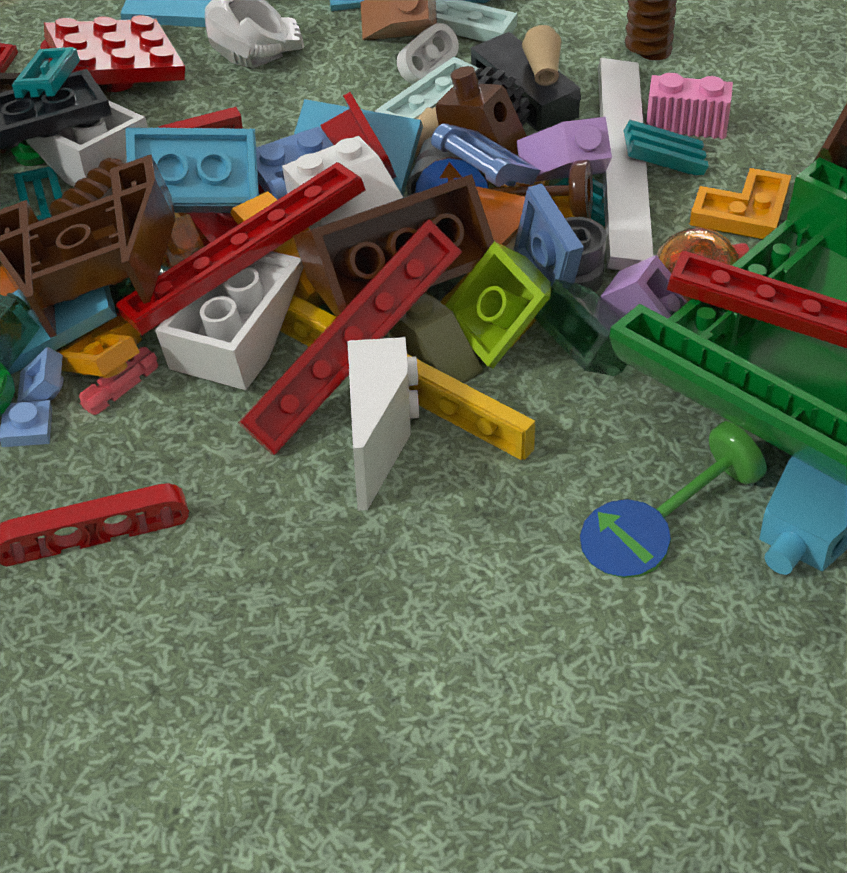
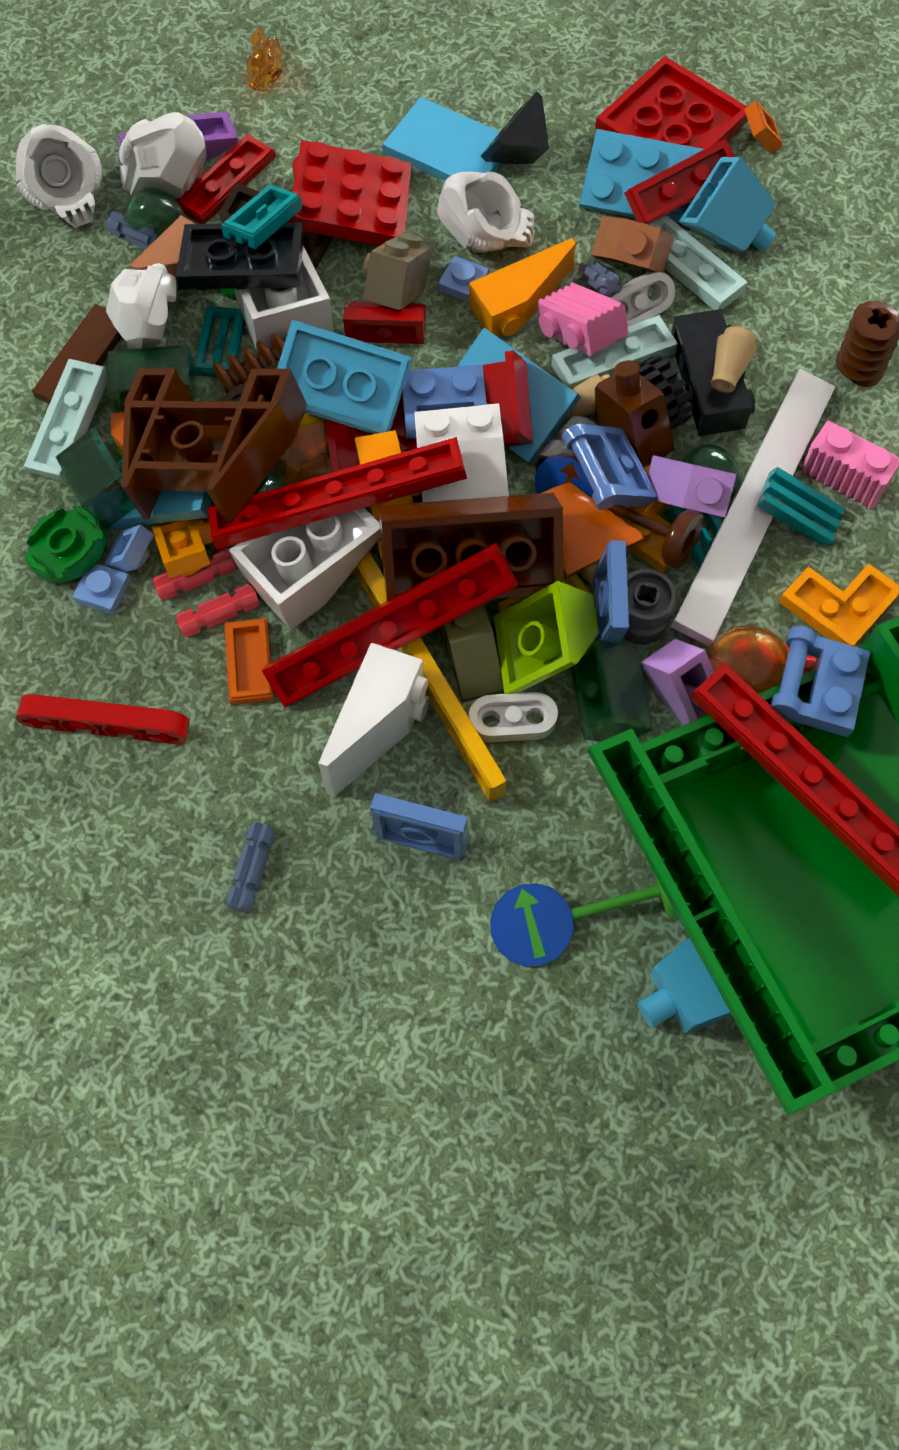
camera: 25 degrees right, 20 degrees up
(159, 401) = (217, 610): none -> coral axle
(194, 84) = (397, 271): none -> dark tan brick
(216, 431) = (246, 656): none -> orange tile
(255, 86) = (458, 276): none -> light blue plate
(313, 73) = (512, 294): none -> light orange slope
(317, 595) = (250, 867): none -> sand blue axle
(385, 43) = (600, 277): none -> sand blue axle
(389, 73) = (582, 319): none -> bright pink brick
(475, 483) = (419, 826): none -> medium blue tile
(502, 378) = (512, 716): none -> white plate
(783, 237) = (835, 684): none -> medium blue plate

